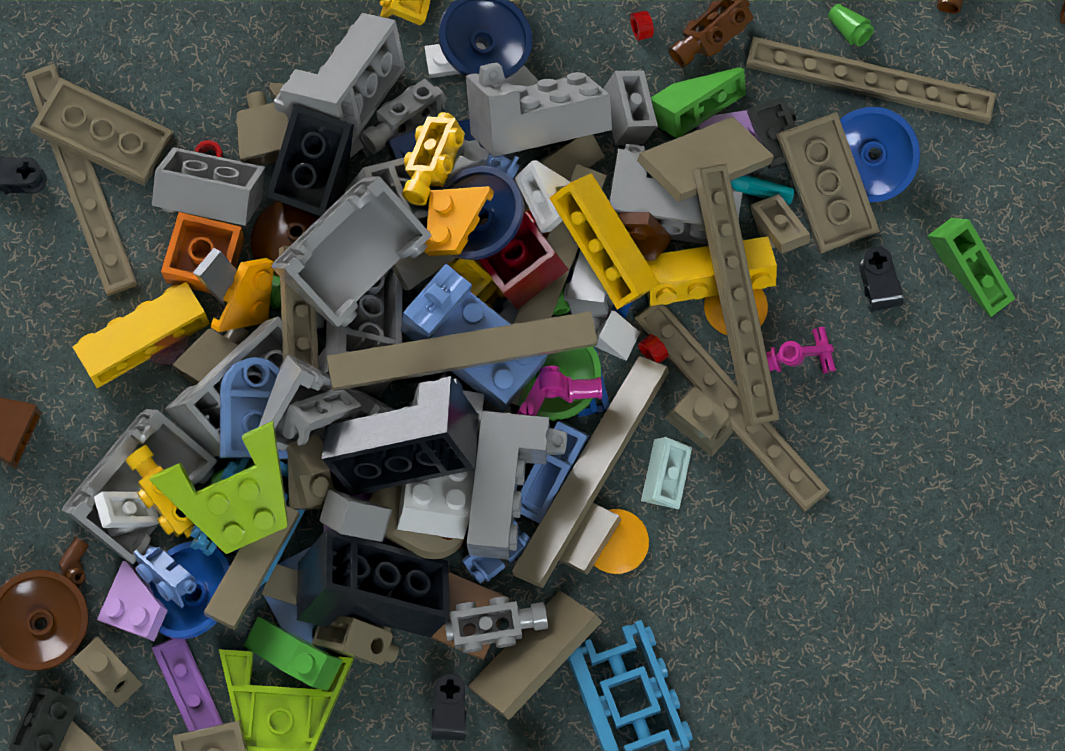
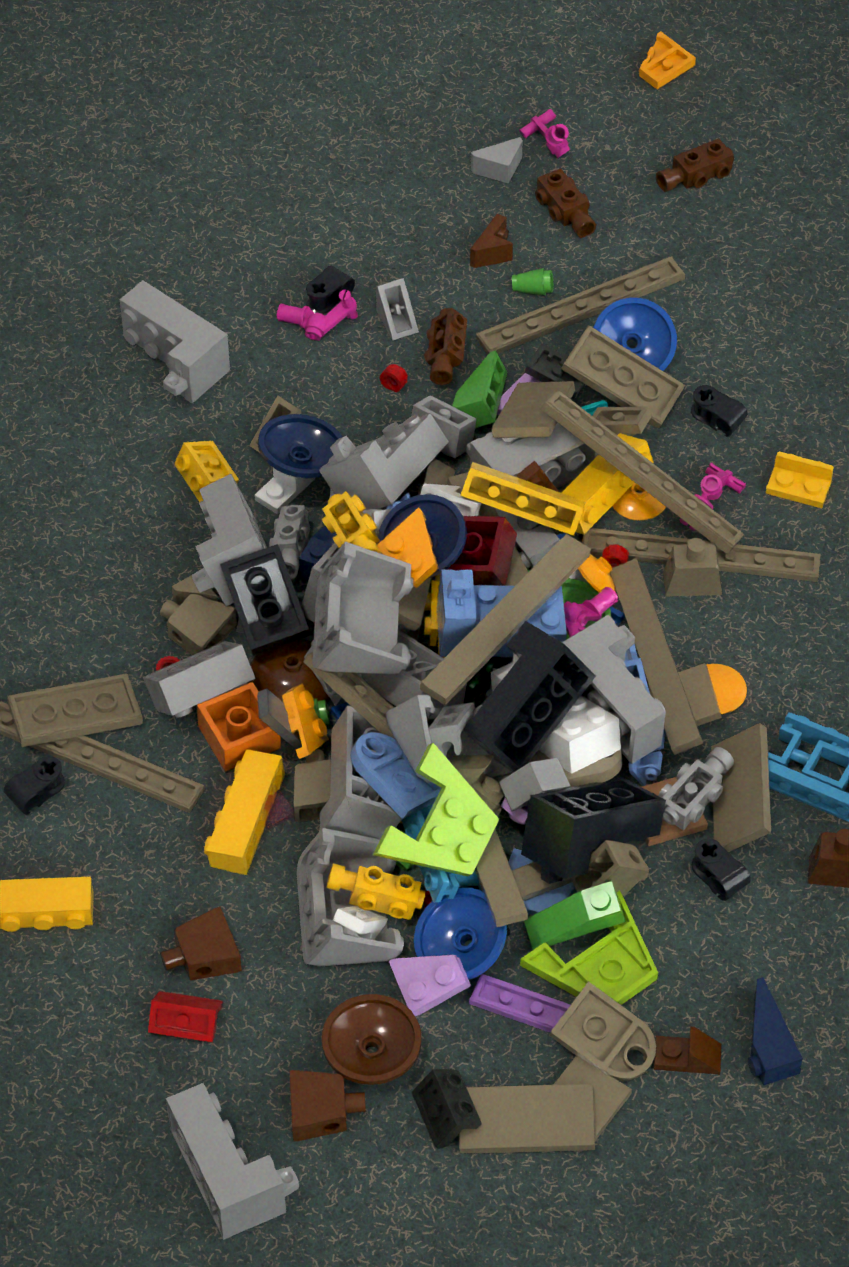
camera: 40 degrees left, 20 degrees down
(70, 562) = (346, 986): reddish brown arm -> none
(107, 672) = (455, 1032): dark tan torso -> none
(155, 568) = (430, 940): medium blue hinge -> none
(615, 351) = (597, 573): none -> light orange dish
(666, 473) = (702, 625): light aqua slope -> none
(883, 406) = (800, 479): none -> yellow bracket
(971, 264) = (763, 359): bright green slope -> none

